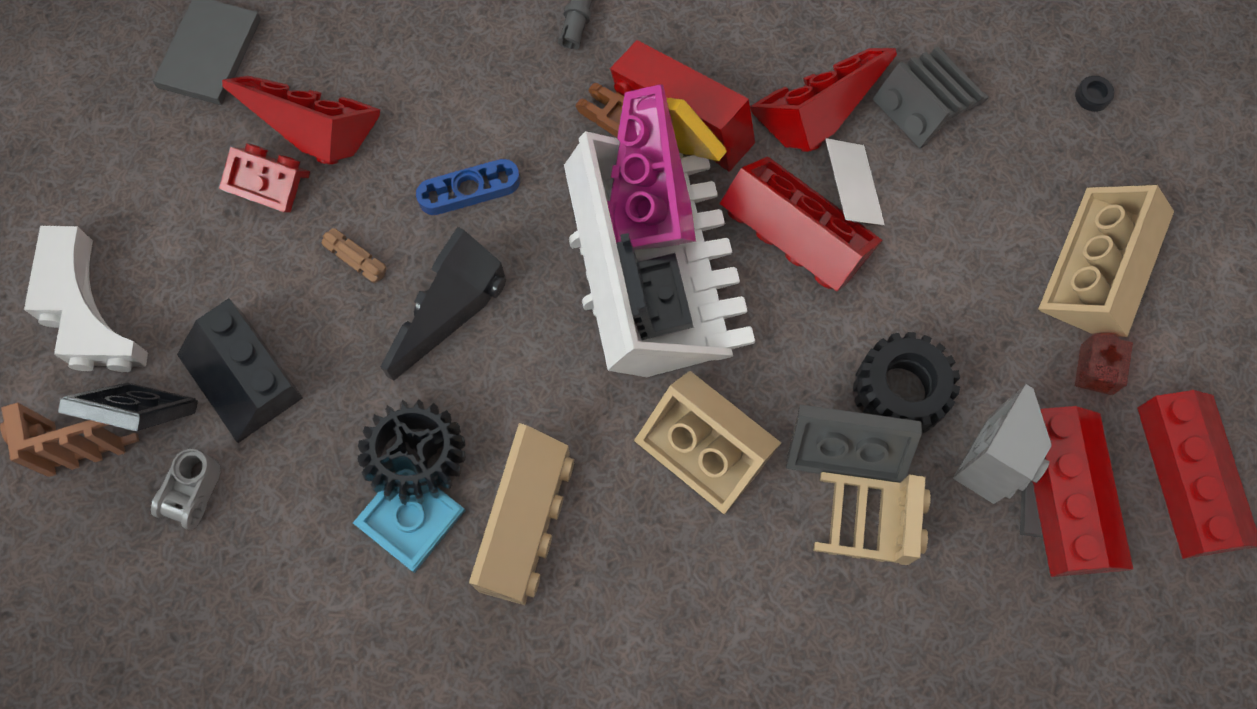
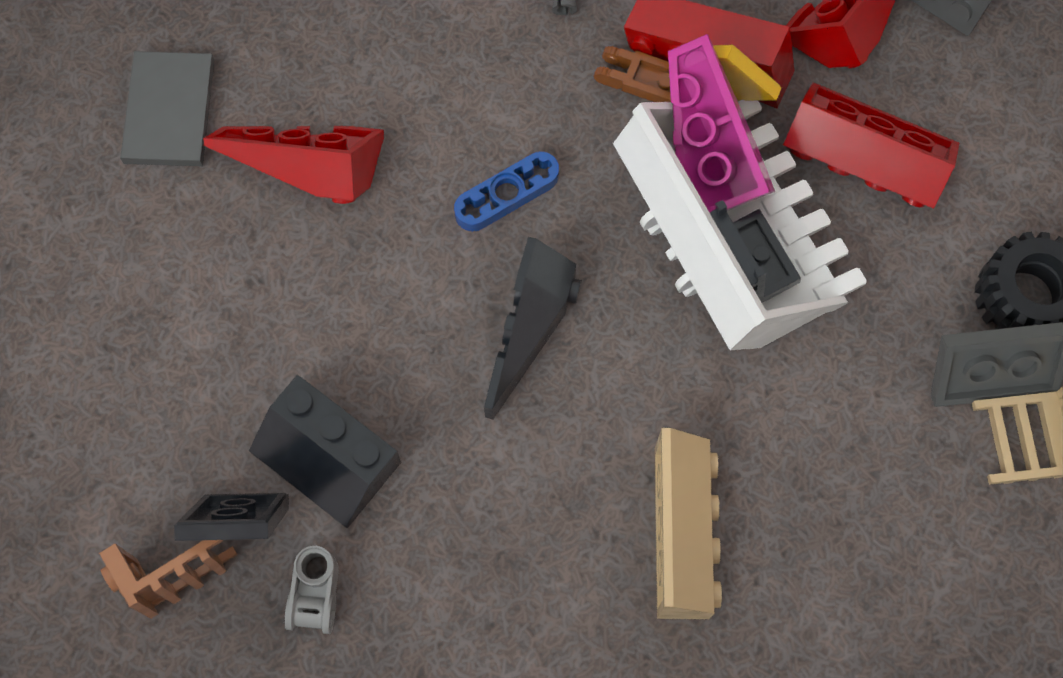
camera: 15 degrees left, 0 degrees up
(63, 299) = (103, 420): white arch -> none
(261, 177) = (280, 235): bracket -> none
(354, 255) = (407, 295): medium nougat axle -> none
(410, 529) = (558, 559): medium azure tile -> none
(437, 432) = (525, 463): black gear -> none
(706, 441) = (848, 400): tan slope -> none
(854, 182) = (914, 88): white sticker -> none

